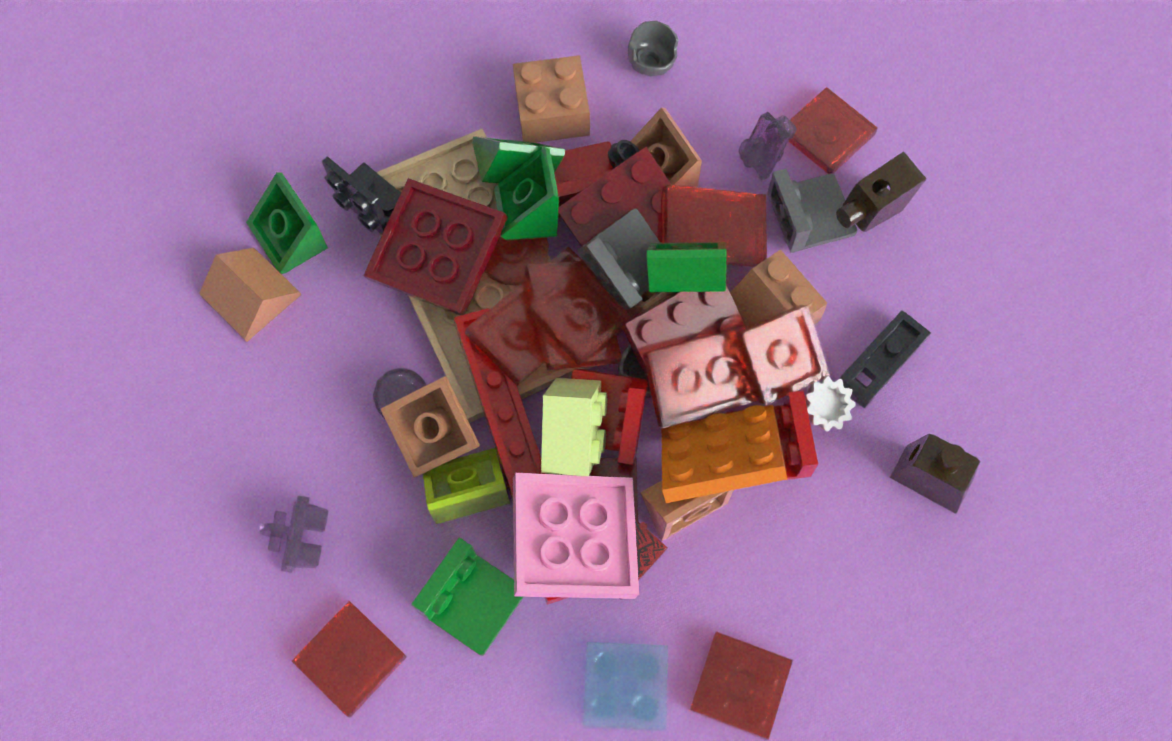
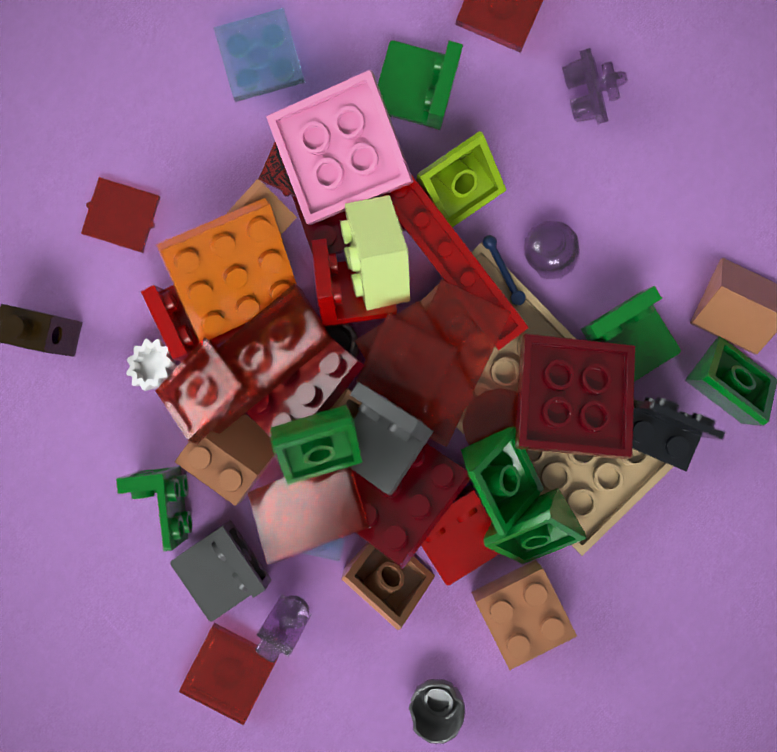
camera: 160 degrees right, 20 degrees up
(355, 300) = (639, 325): none -> green bracket
(430, 426) = (511, 215): nougat slope -> none
(453, 356) = (517, 297): none -> dark blue hinge
(621, 152) = (420, 574): black plate -> none
(741, 685) = (163, 91): clear red plate -> none
(822, 570) = (120, 215): none -> clear red piece
(850, 294) = (170, 489): none -> green bracket
(873, 202) = (151, 602): dark brown torso -> none
(885, 357) = (112, 433): black plate -> none

